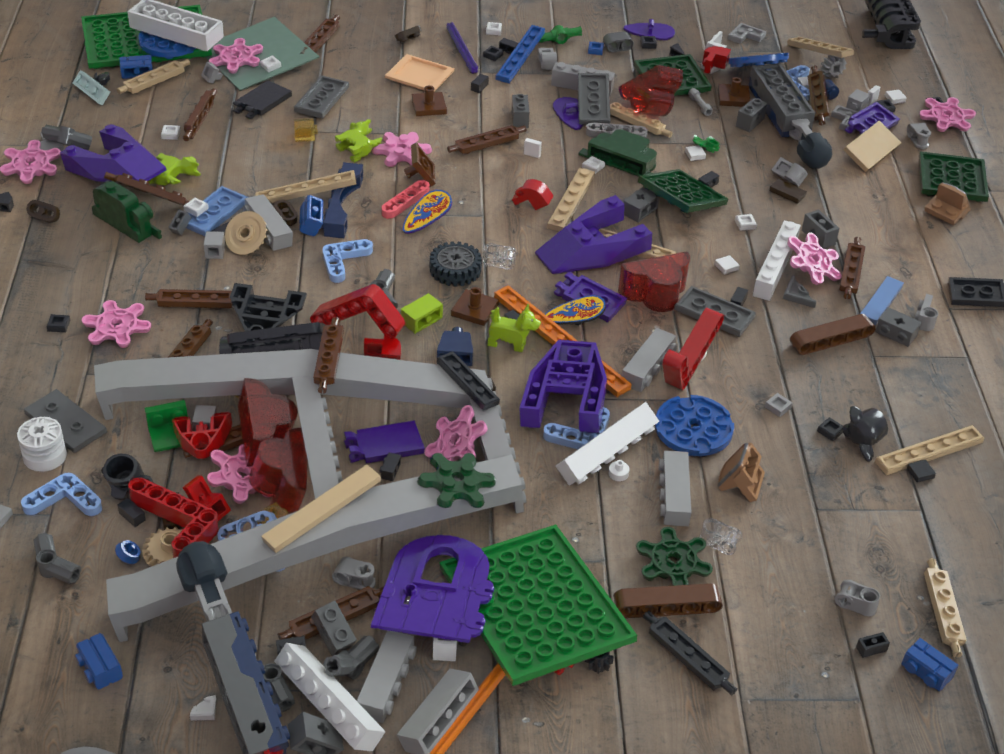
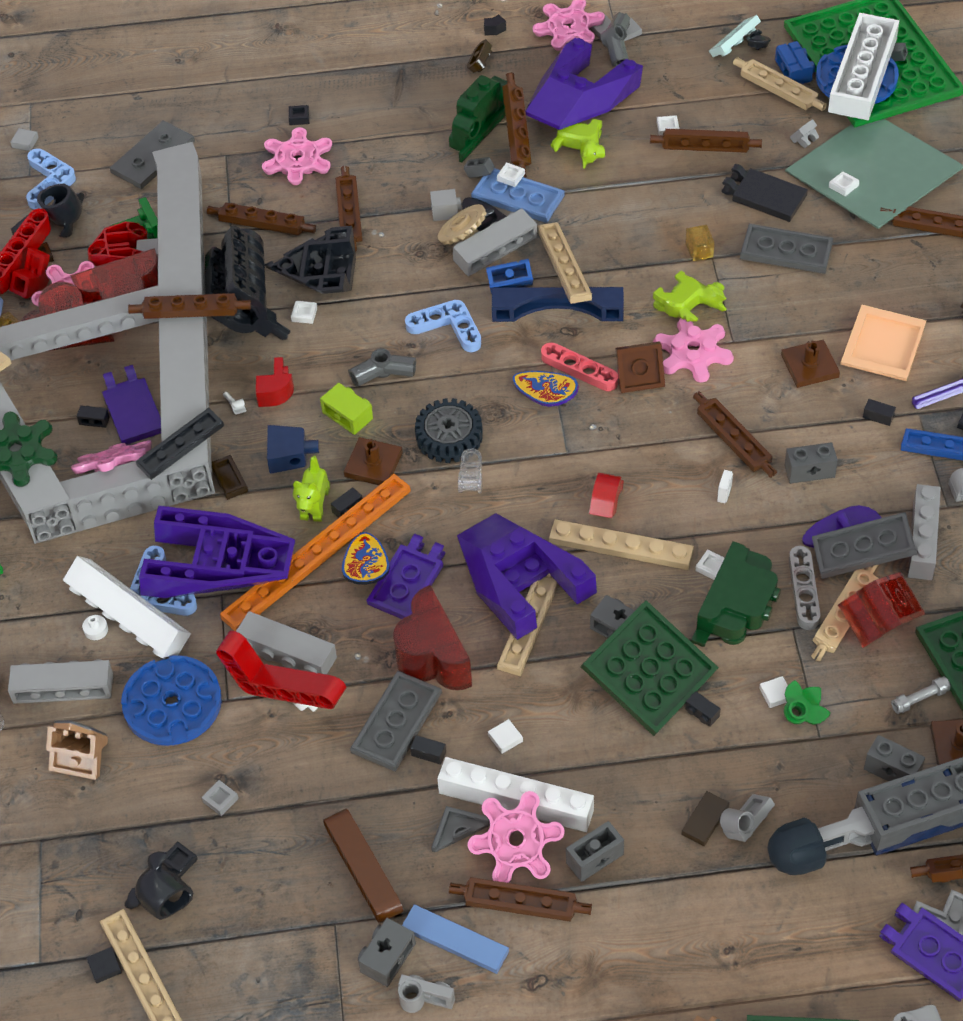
camera: 90 degrees right, 10 degrees up
(42, 444) = (103, 140): white wheel -> none
(228, 55) = (859, 139): bright pink plate -> none
(286, 211) = (523, 252): dark brown plate -> none
(365, 299) = (300, 340): red beam -> none
(745, 222) = (613, 761): white tile -> none
(872, 146) = (854, 944): tan tile -> none

